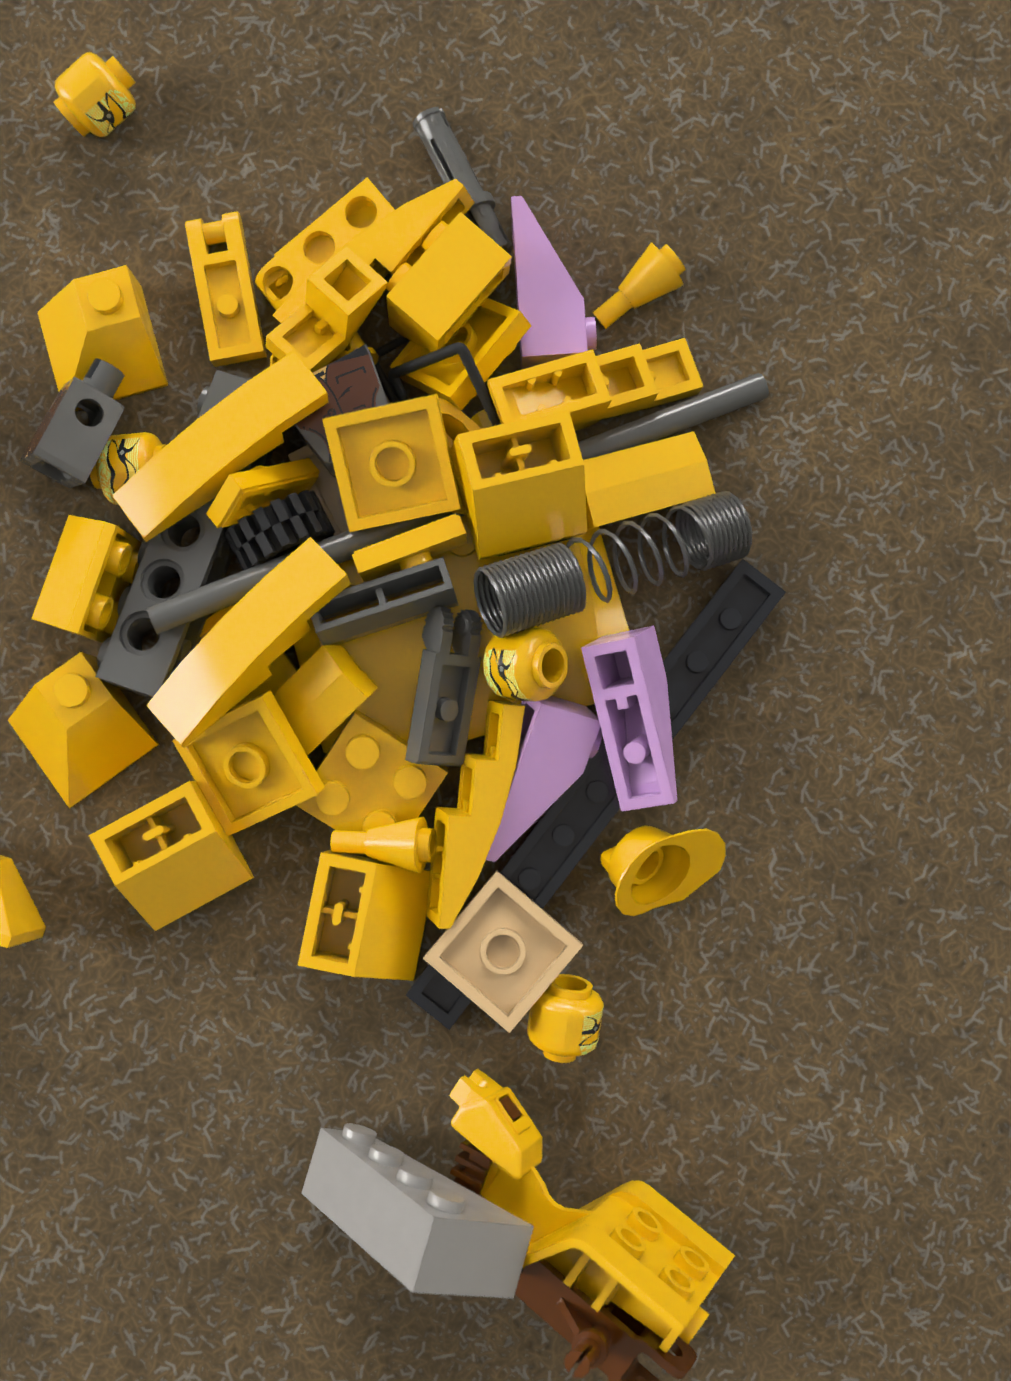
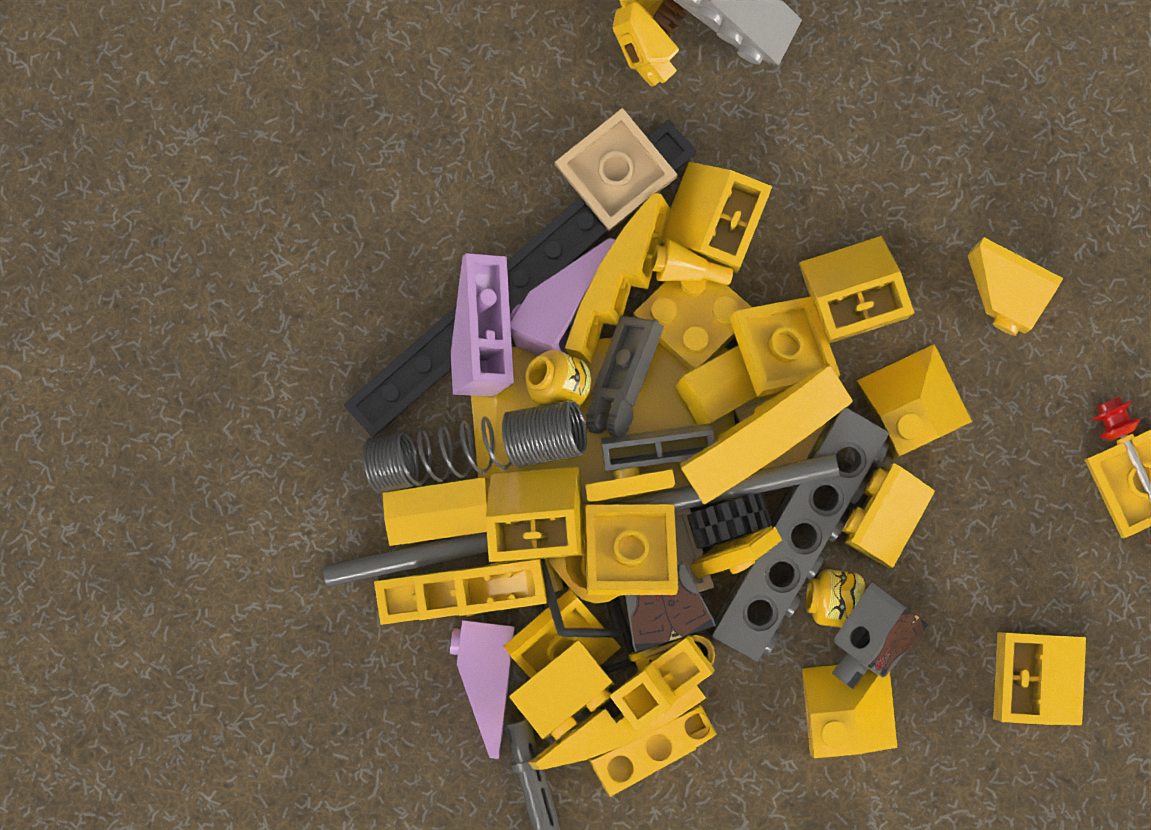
camera: 170 degrees left, 0 degrees up
(220, 444) = (762, 590): yellow slope -> none
(225, 291) = (741, 734): yellow plate -> none
(566, 1019) = (577, 110): yellow head -> none
(649, 279) = (399, 678): yellow cone -> none
(661, 868) = (483, 210): yellow piece -> none

